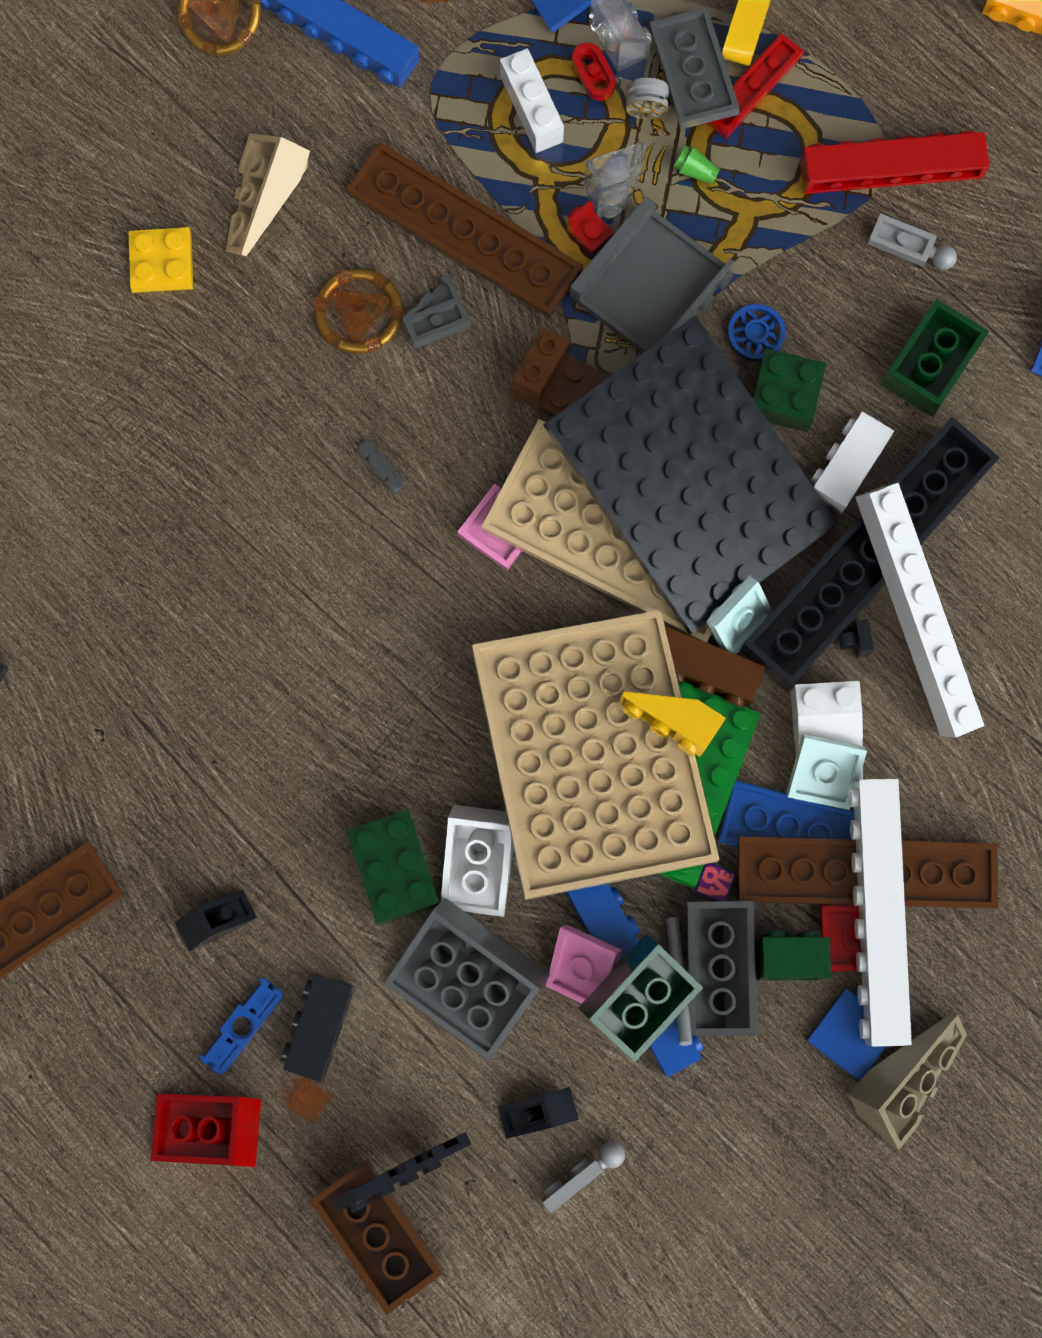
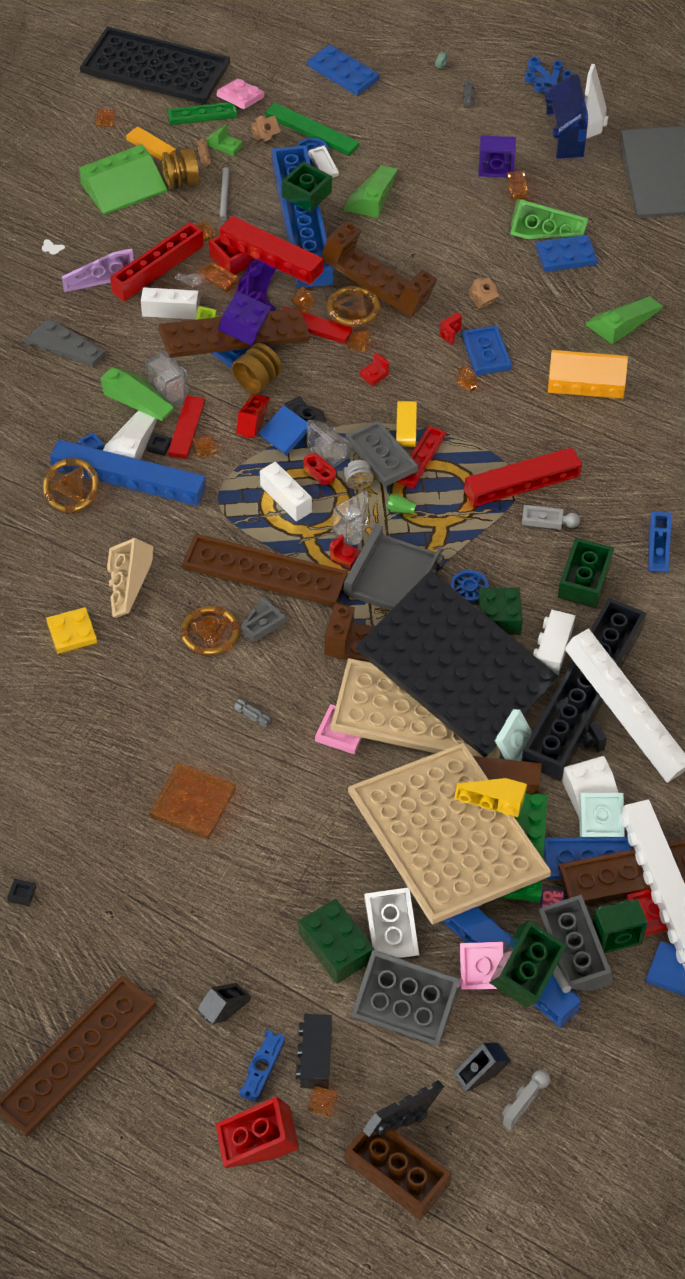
camera: 15 degrees left, 25 degrees down
(257, 589) = (192, 800): none -> clear orange plate

